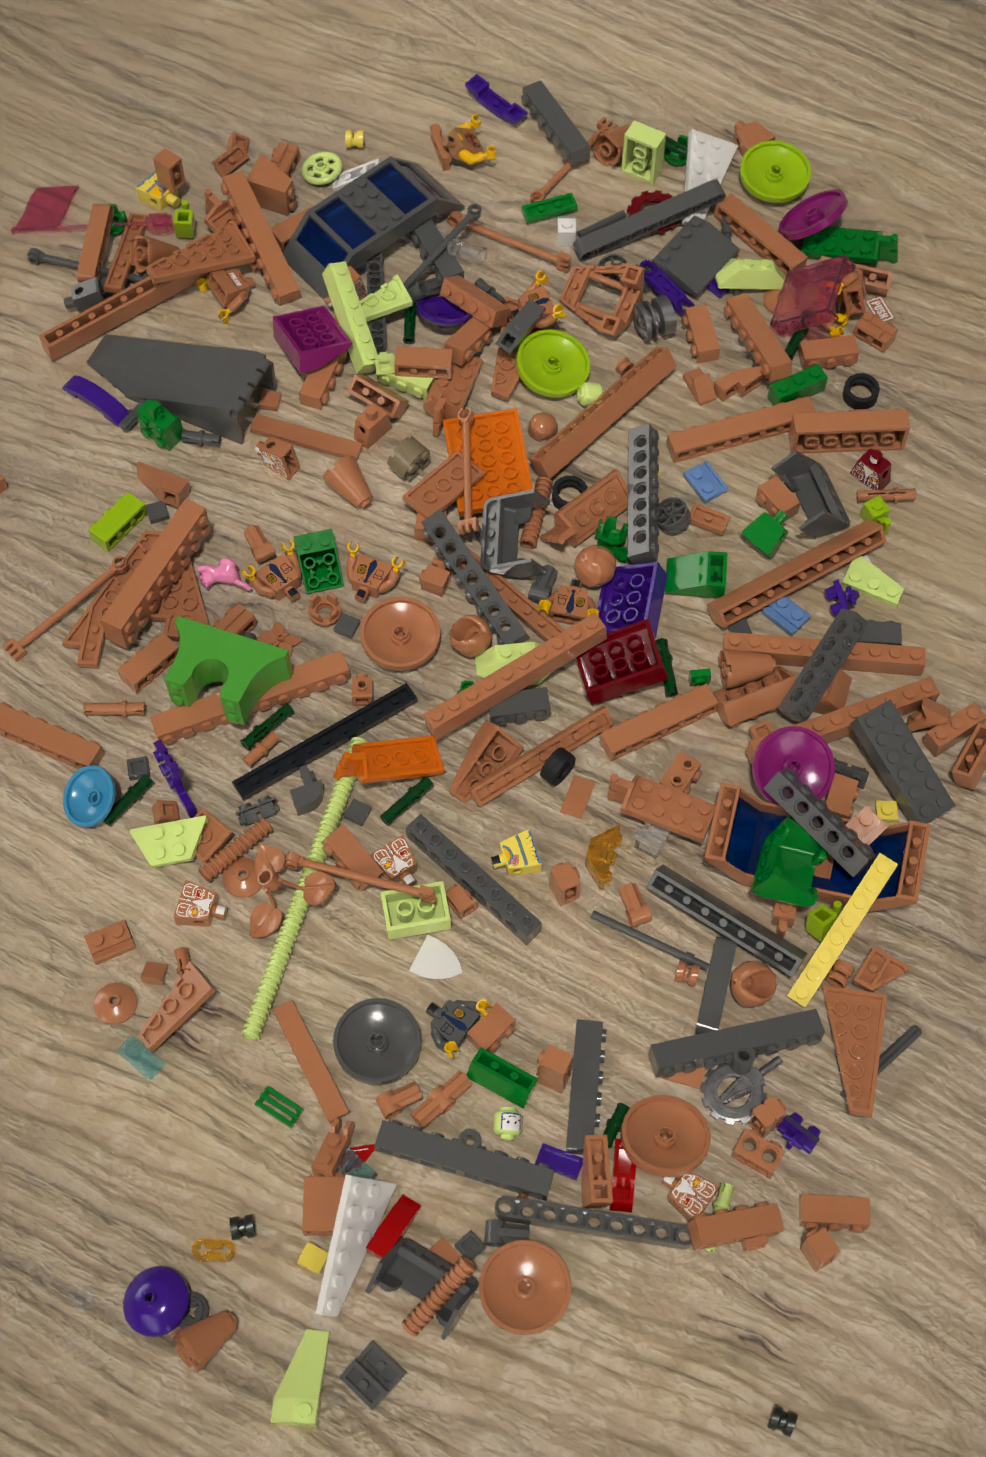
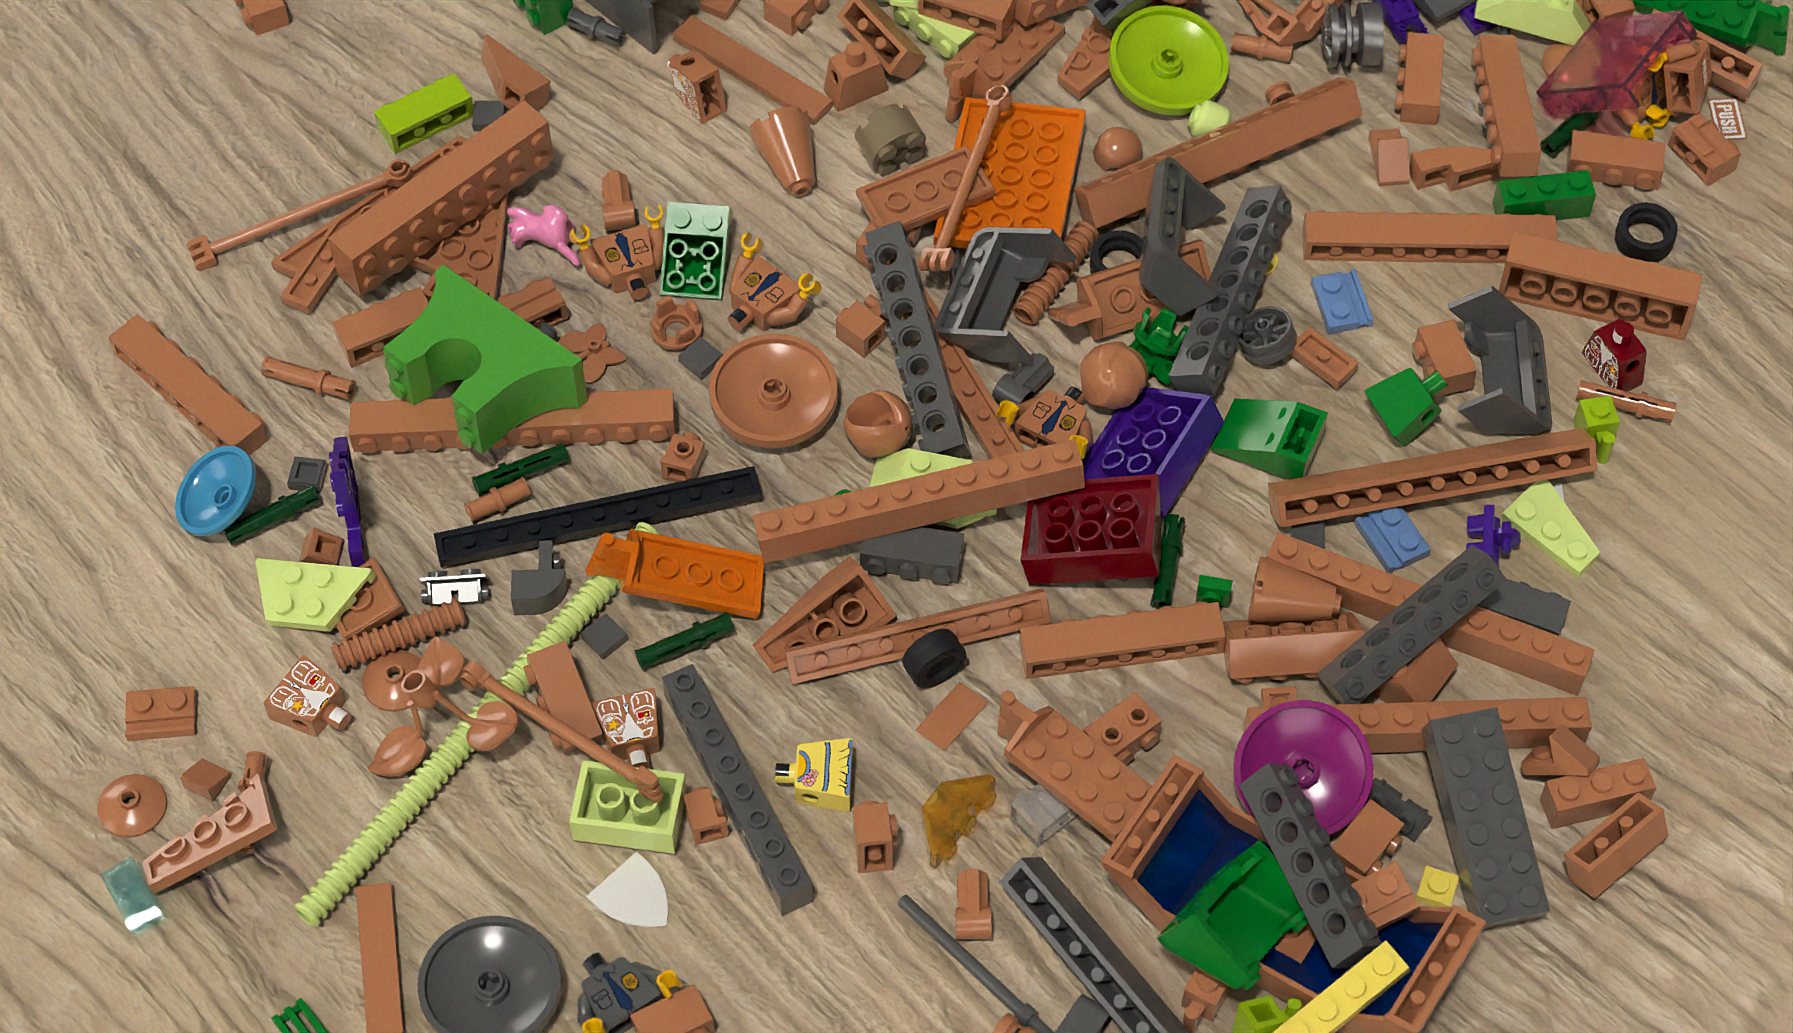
camera: 20 degrees right, 5 degrees down
(591, 454) = (1174, 202): none -> dark grey windscreen
(601, 340) = (1261, 47): none -> nougat pin

